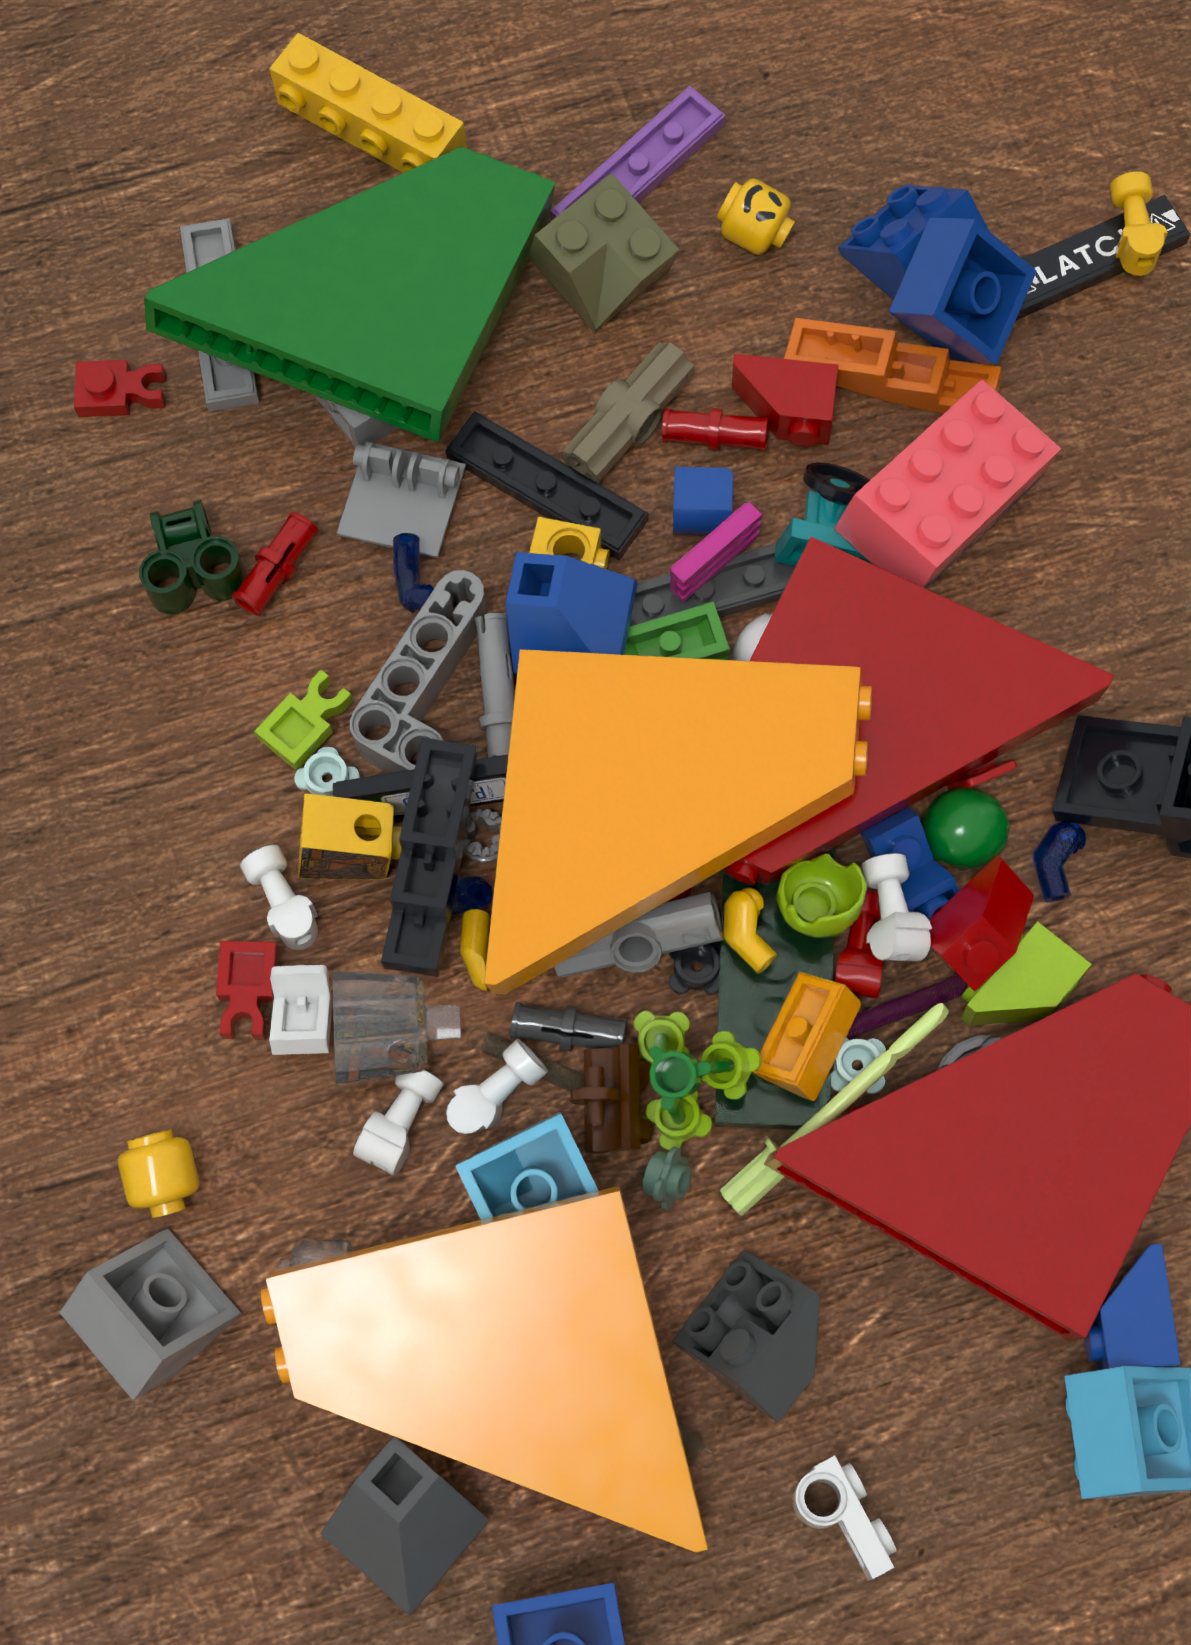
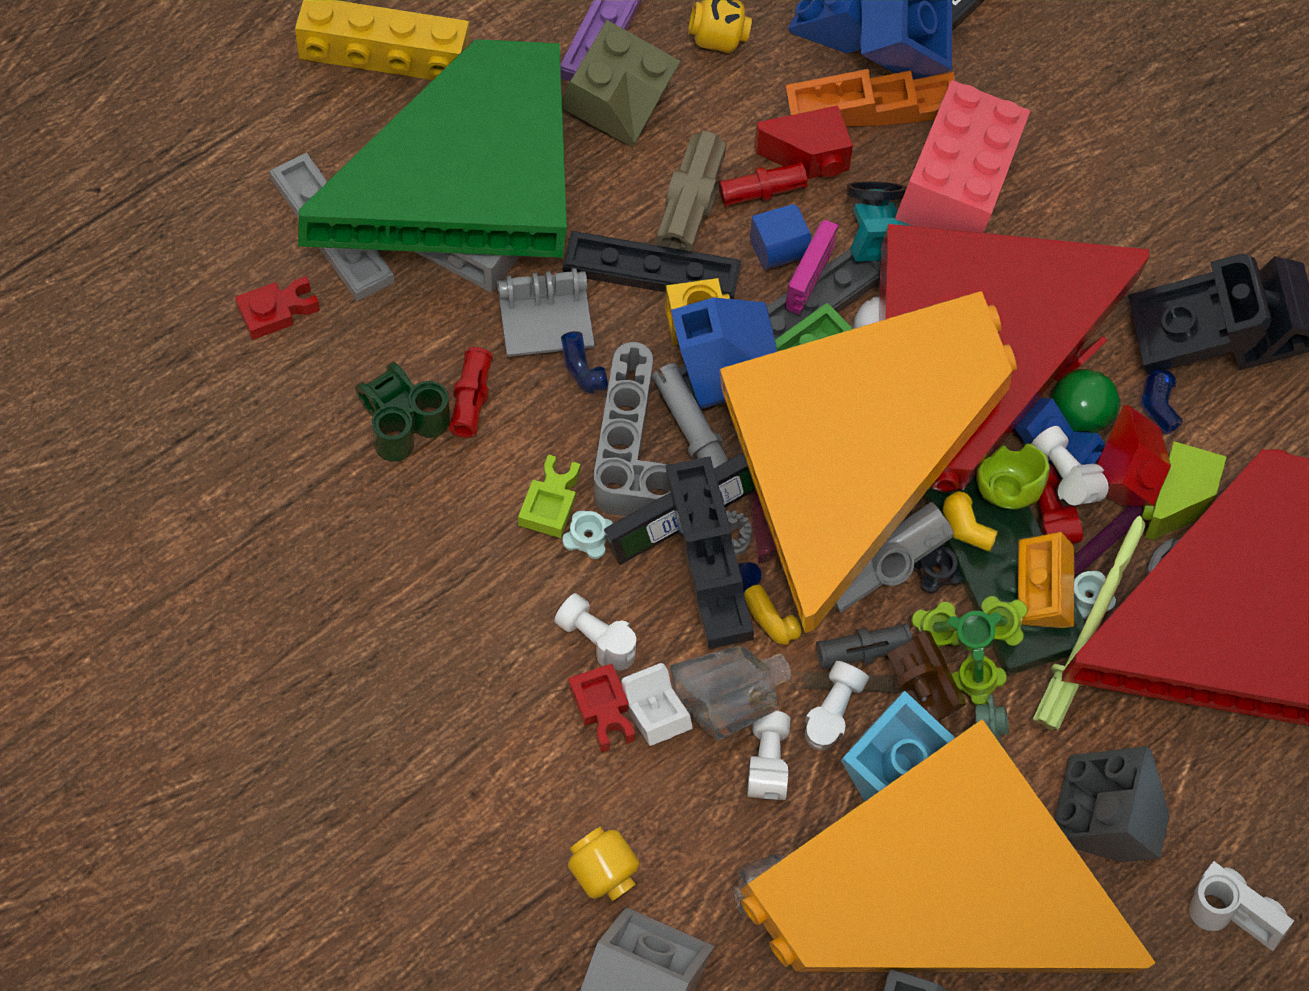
camera: 30 degrees left, 10 degrees down
(346, 838) = (631, 567): yellow torso -> none

